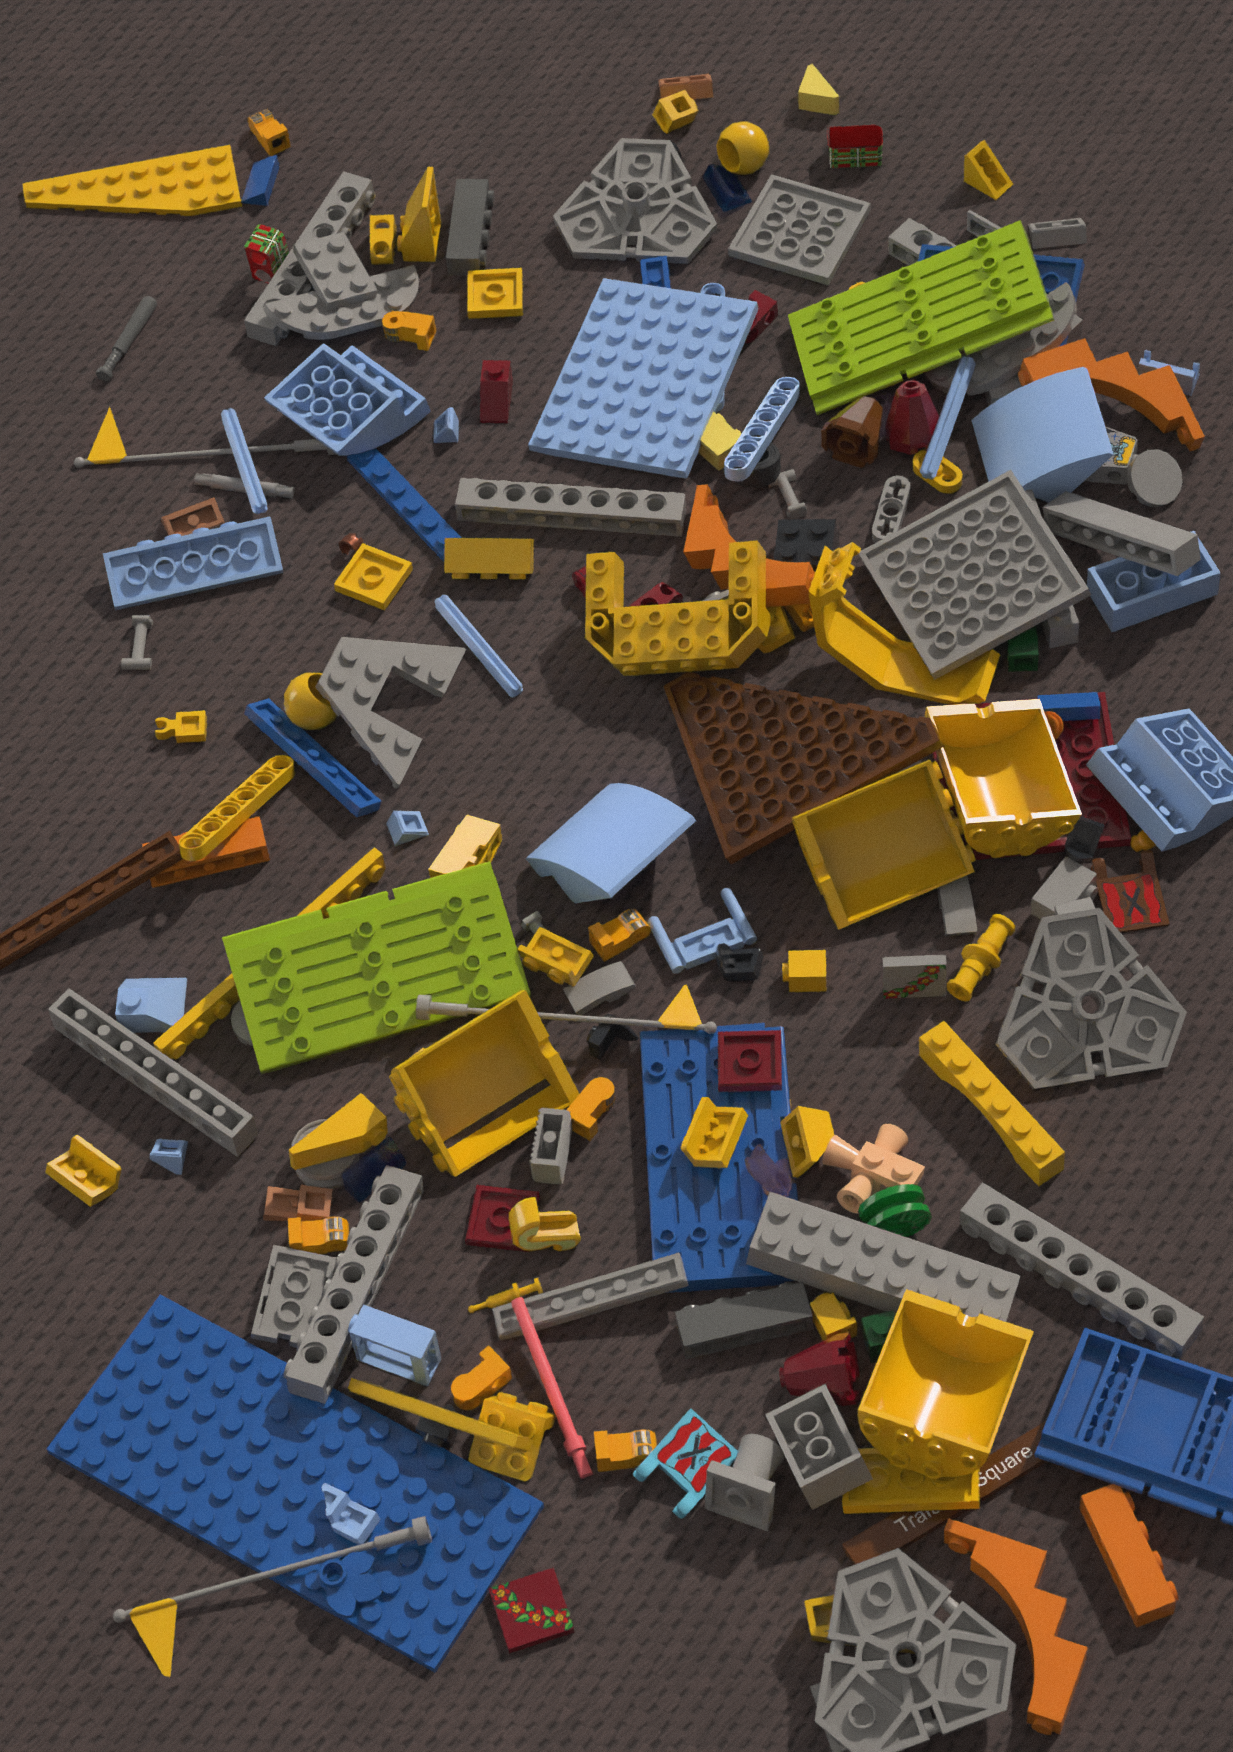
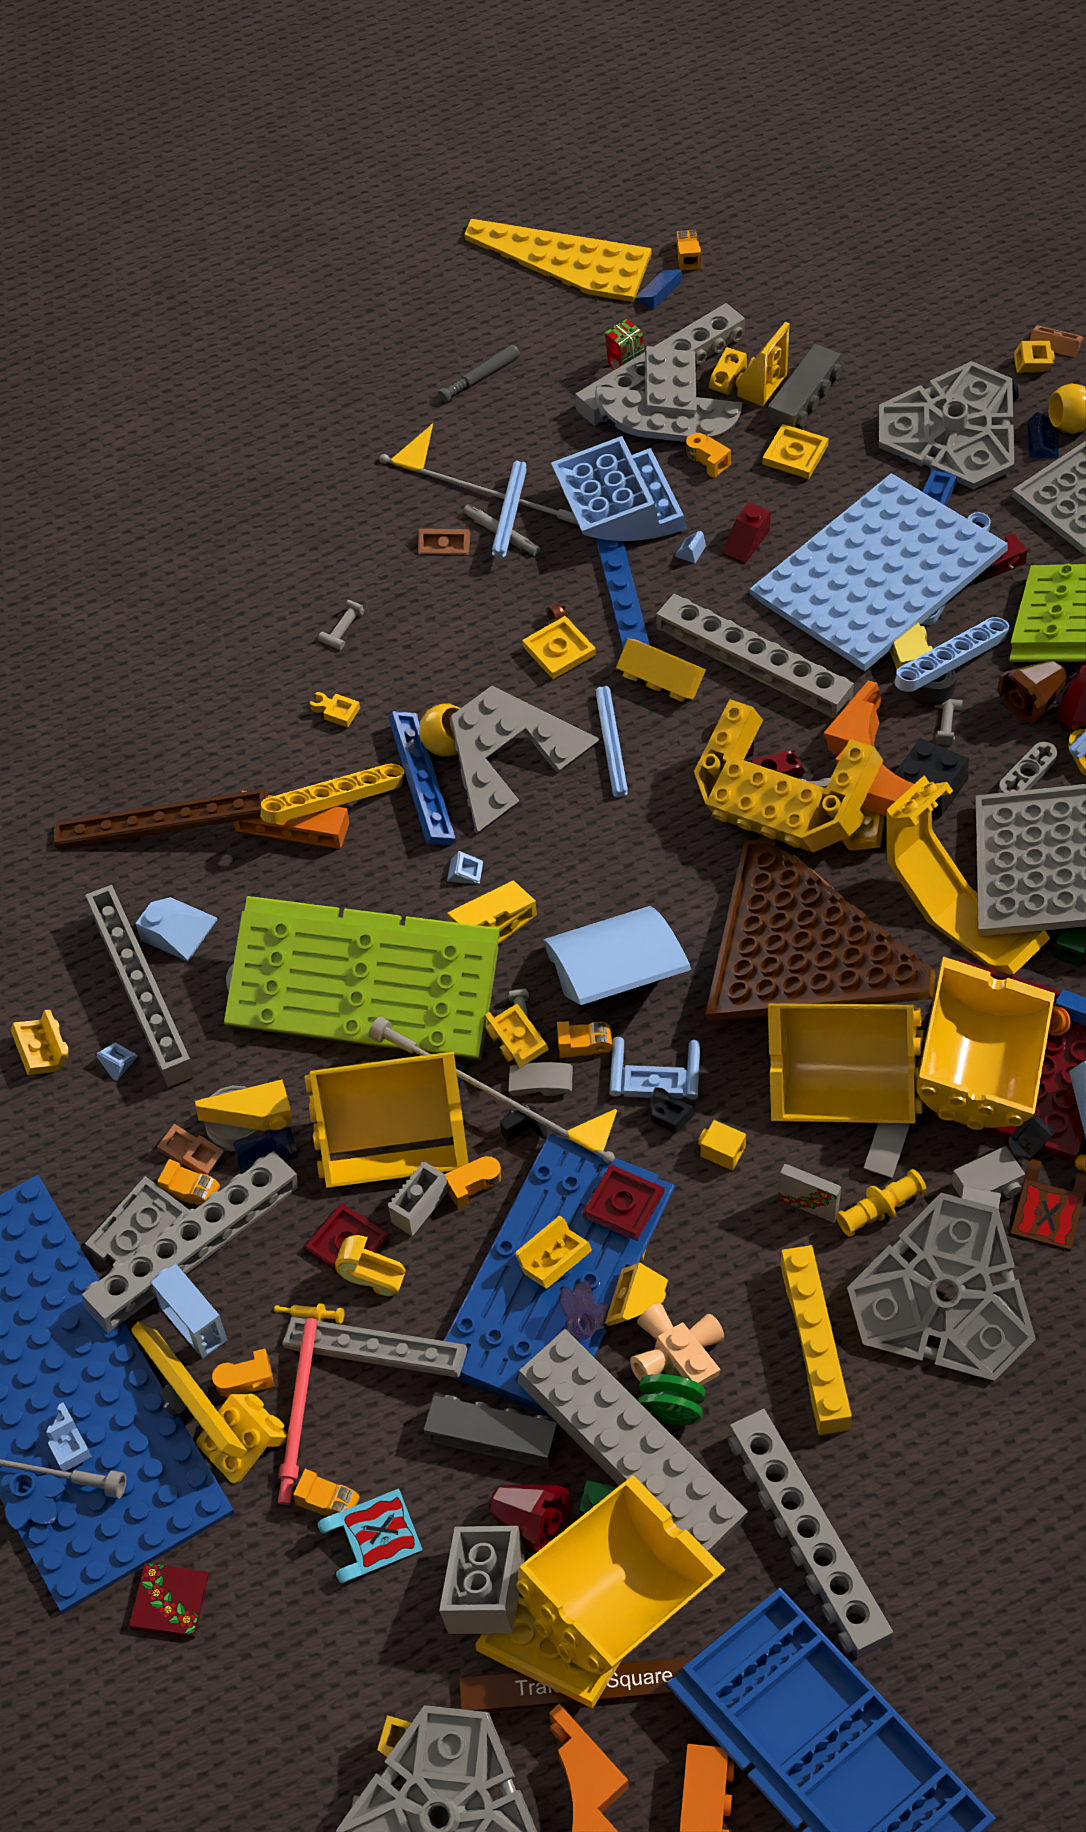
camera: 25 degrees right, 0 degrees up
(192, 562) = (421, 576): light blue plate -> none
(220, 999) = (223, 950): yellow plate -> none
(745, 1488) = (401, 1583): light grey plant -> none
(832, 1317) = (567, 1467): yellow brick -> none

